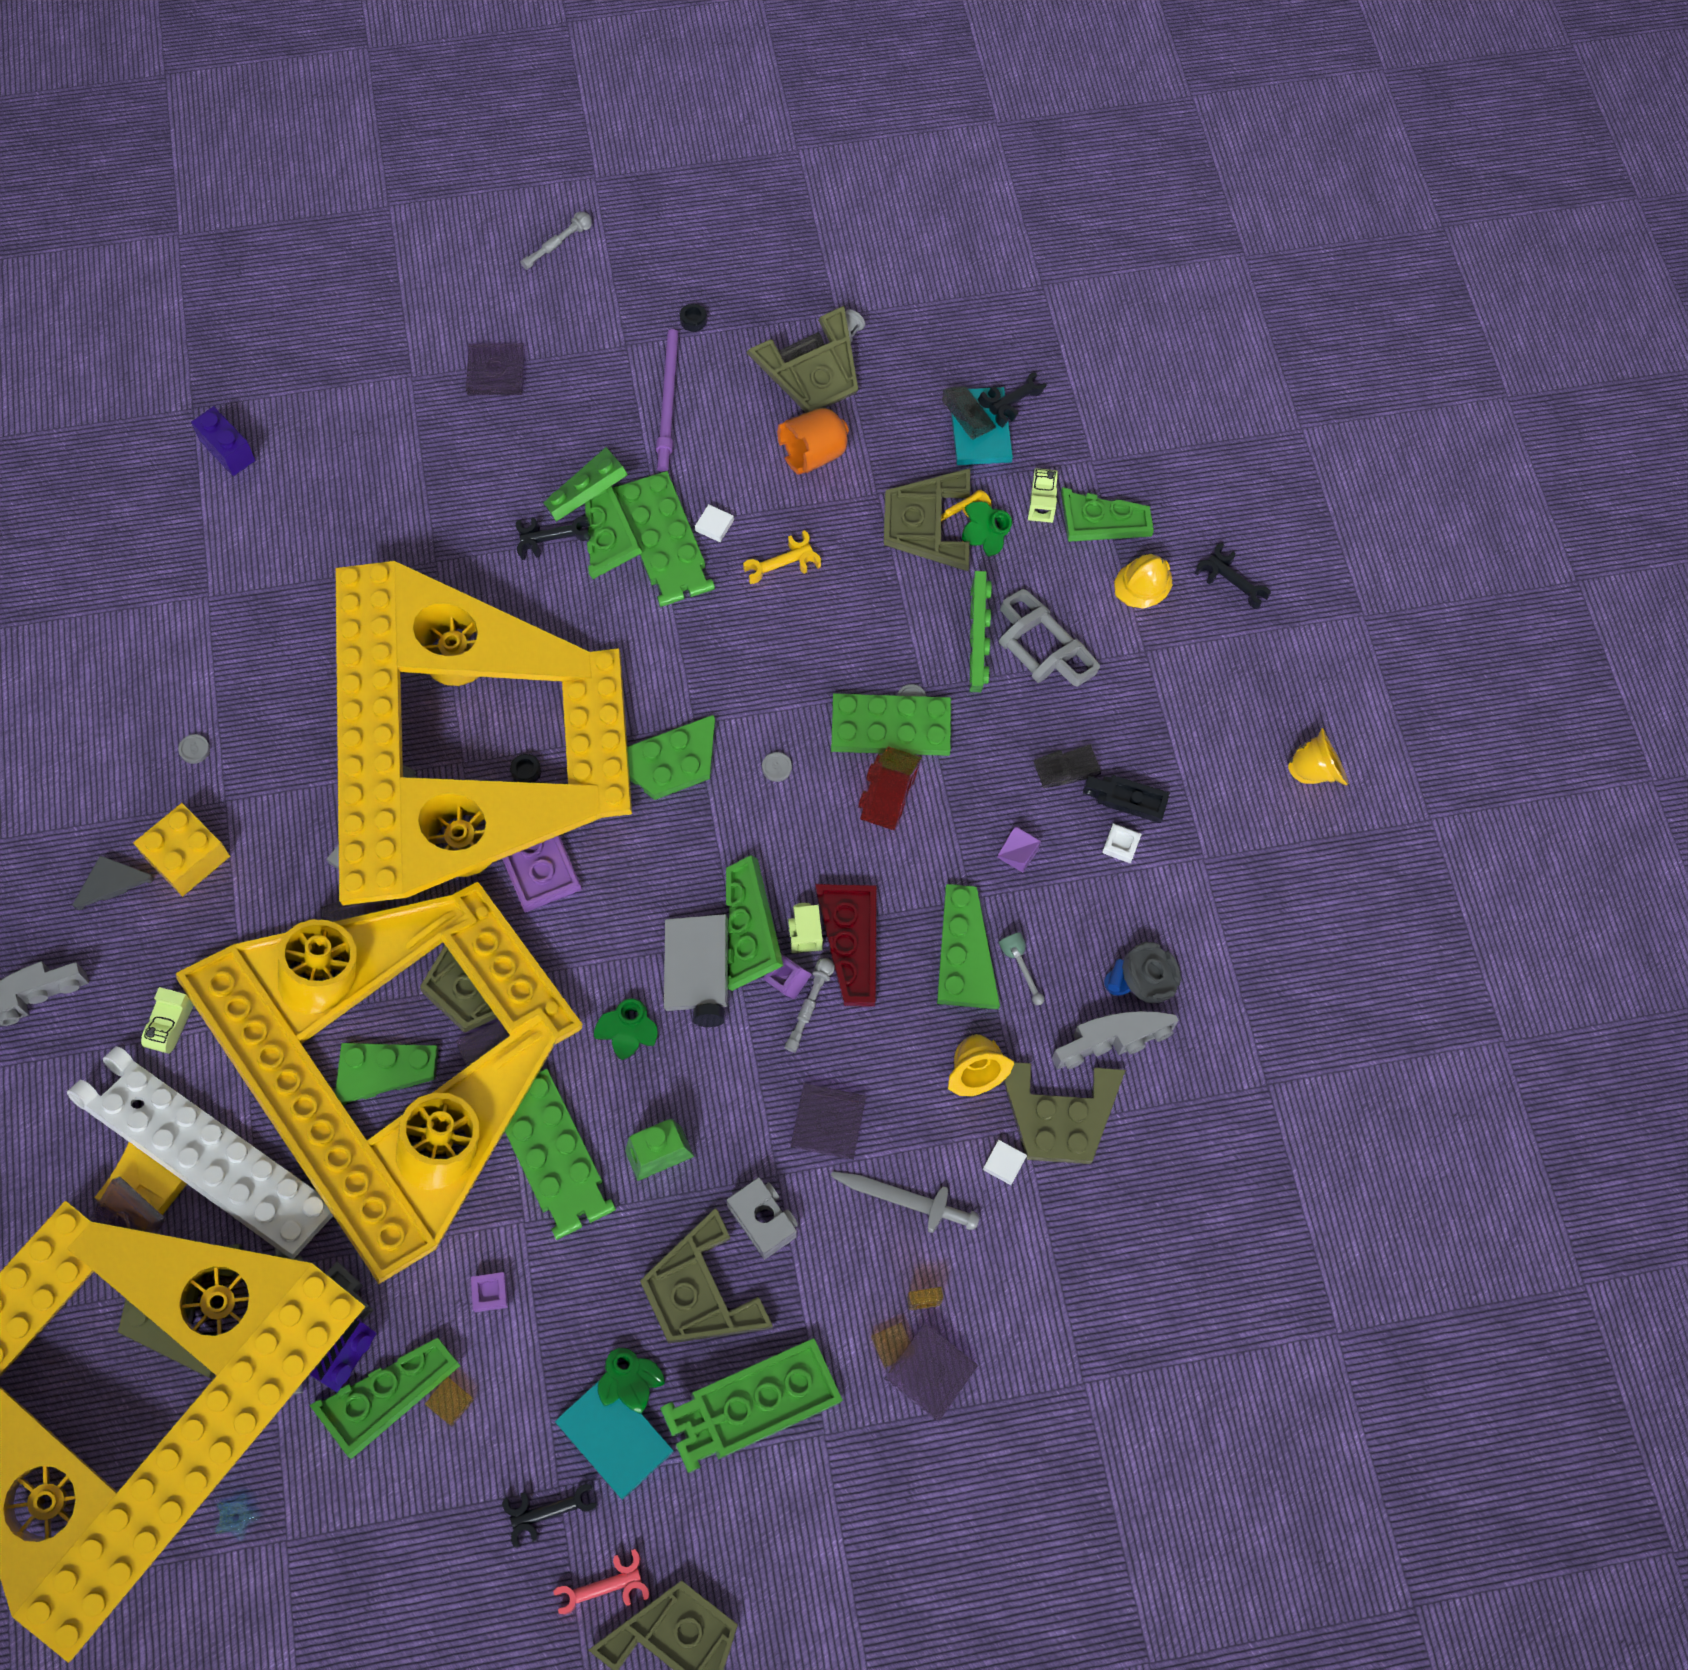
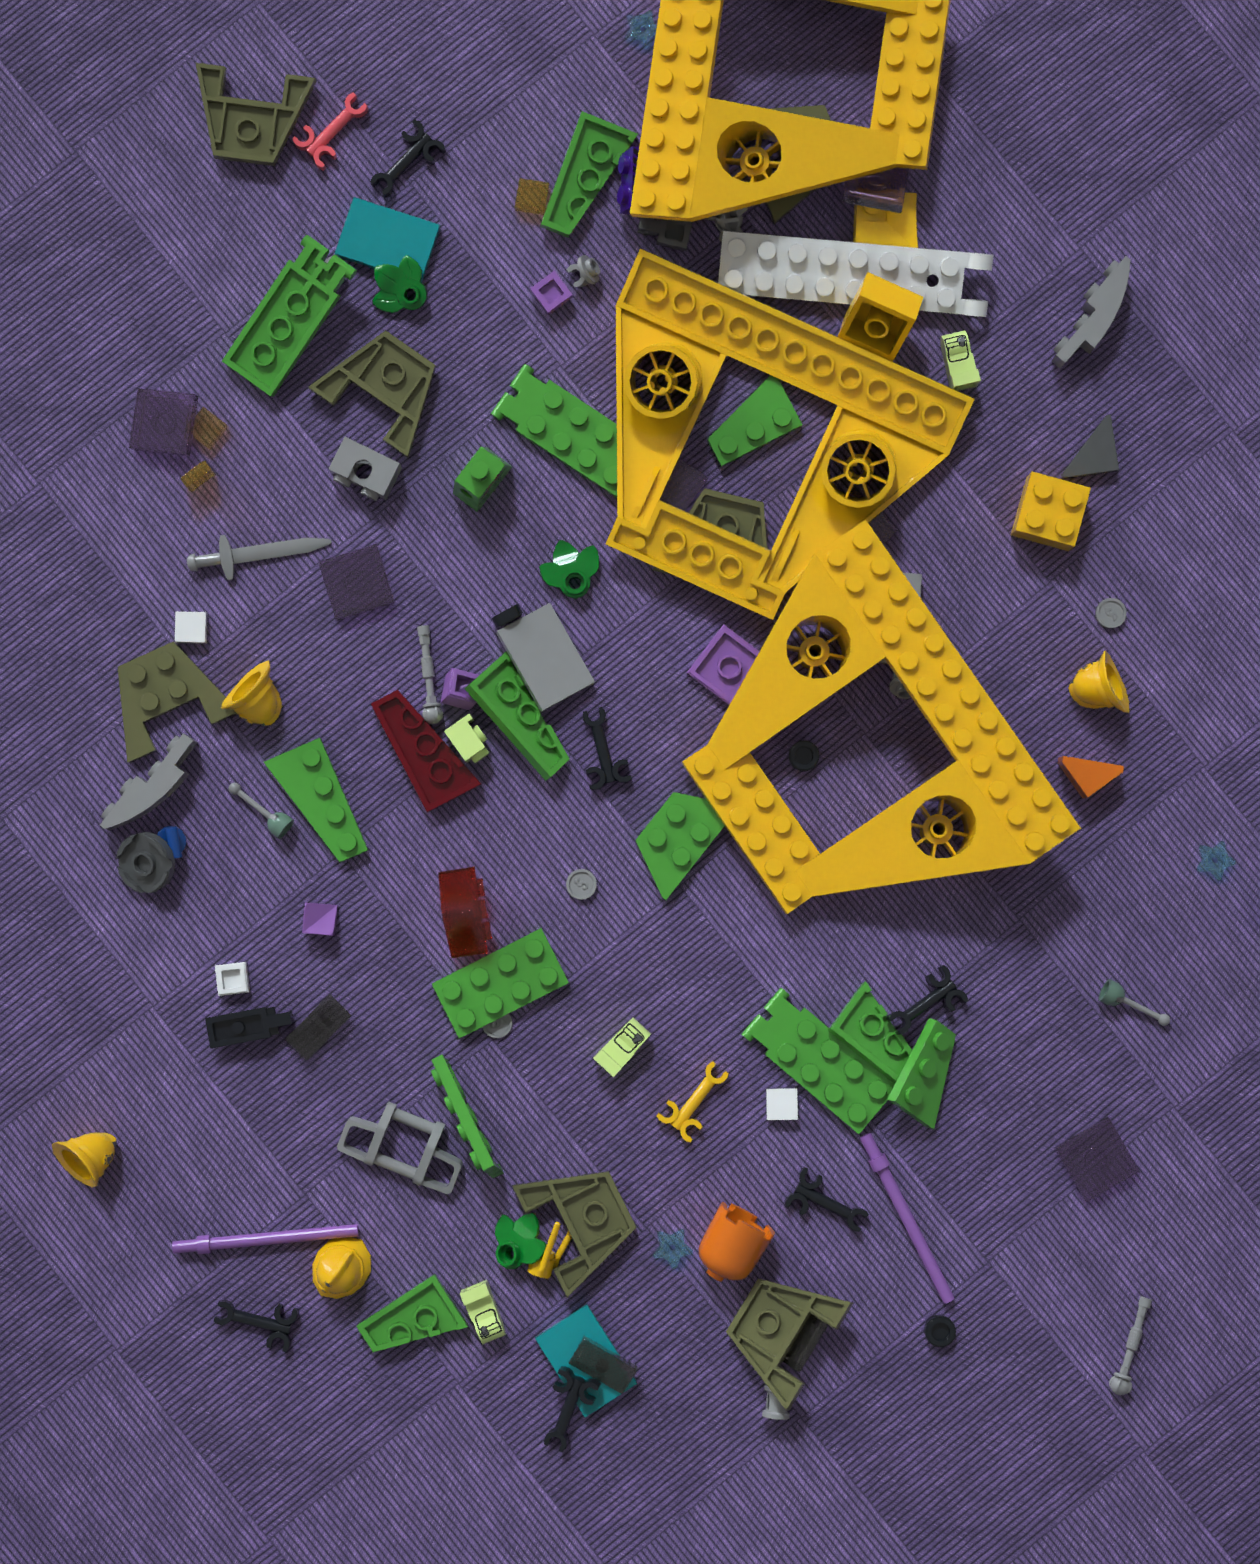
camera: 155 degrees right, 20 degrees up
(205, 1089) = (880, 316): none -> yellow brick
(245, 691) = (1099, 686): none -> yellow piece
(248, 518) = (1220, 853): none -> clear light blue plate
(302, 629) = (1088, 775): none -> orange slope
(400, 469) = (1114, 994): none -> hinge
(441, 1292) = (588, 269): none -> light grey plate
(697, 842) = (608, 772): none -> black bar
(731, 454) = (805, 1191): none -> black bar
(819, 623) = (622, 1046): none -> yellowish green leg
(865, 462) = (680, 1250): none -> clear light blue plate
(1250, 652) = (205, 1244): none -> medium lavender bar

